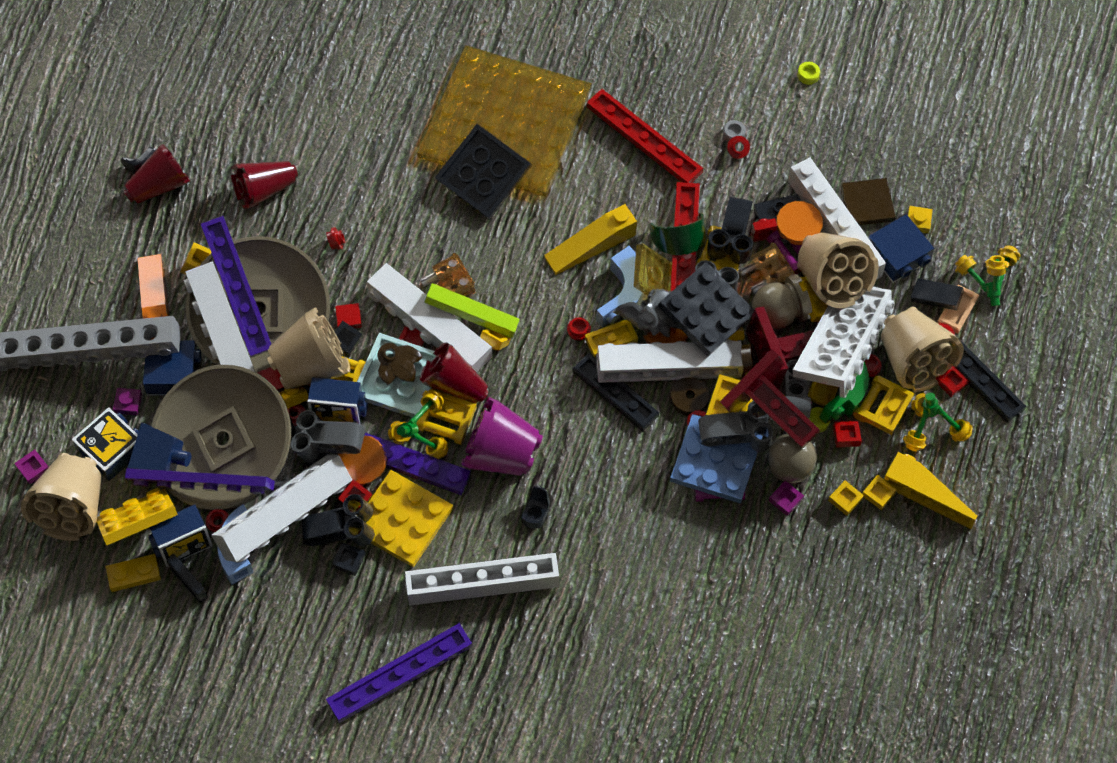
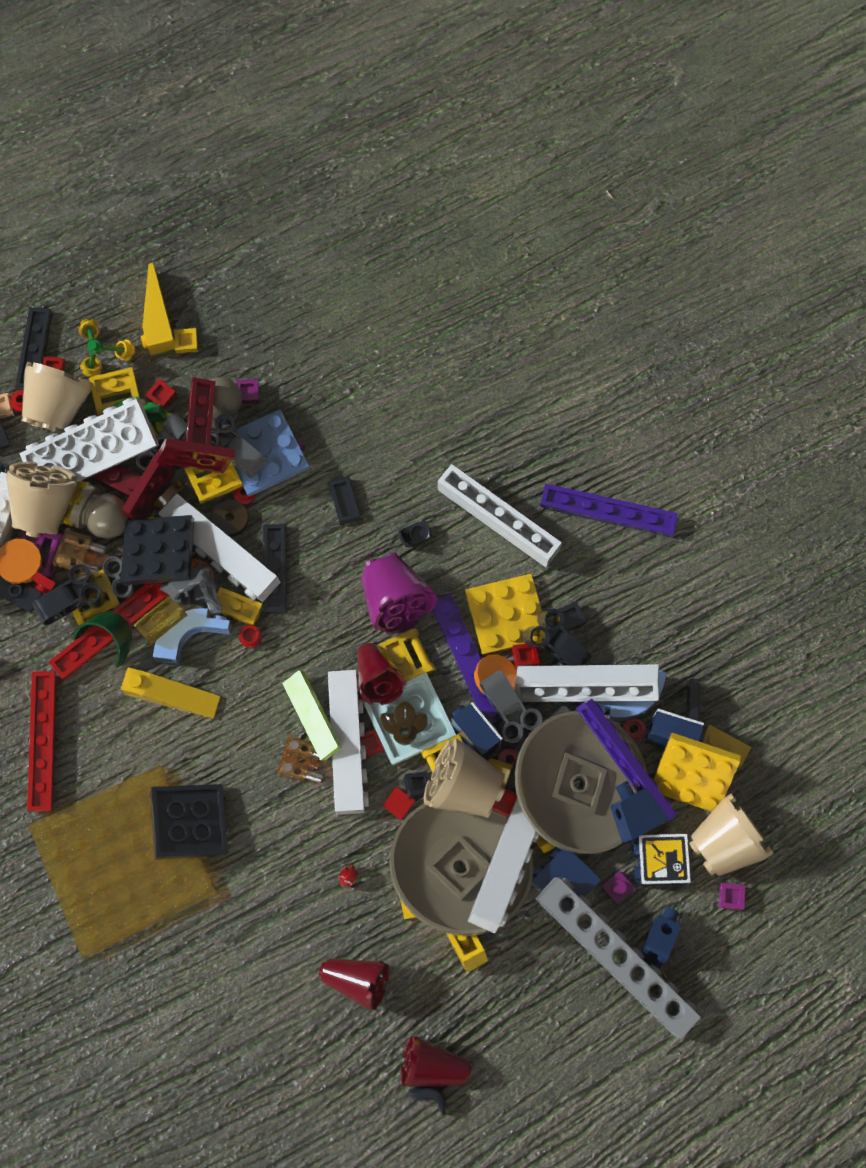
camera: 135 degrees left, 10 degrees up
(61, 386) = (661, 938): none -> dark blue torso
(152, 287) = (524, 960): slope -> none
(236, 286) = (466, 888): dark purple plate -> none
(403, 431) = (436, 640): yellow plant -> none
(495, 339) = (318, 680): yellow plate -> none
(618, 488) = (344, 500): none -> black tile
(845, 498) = (210, 356): yellow plate -> none

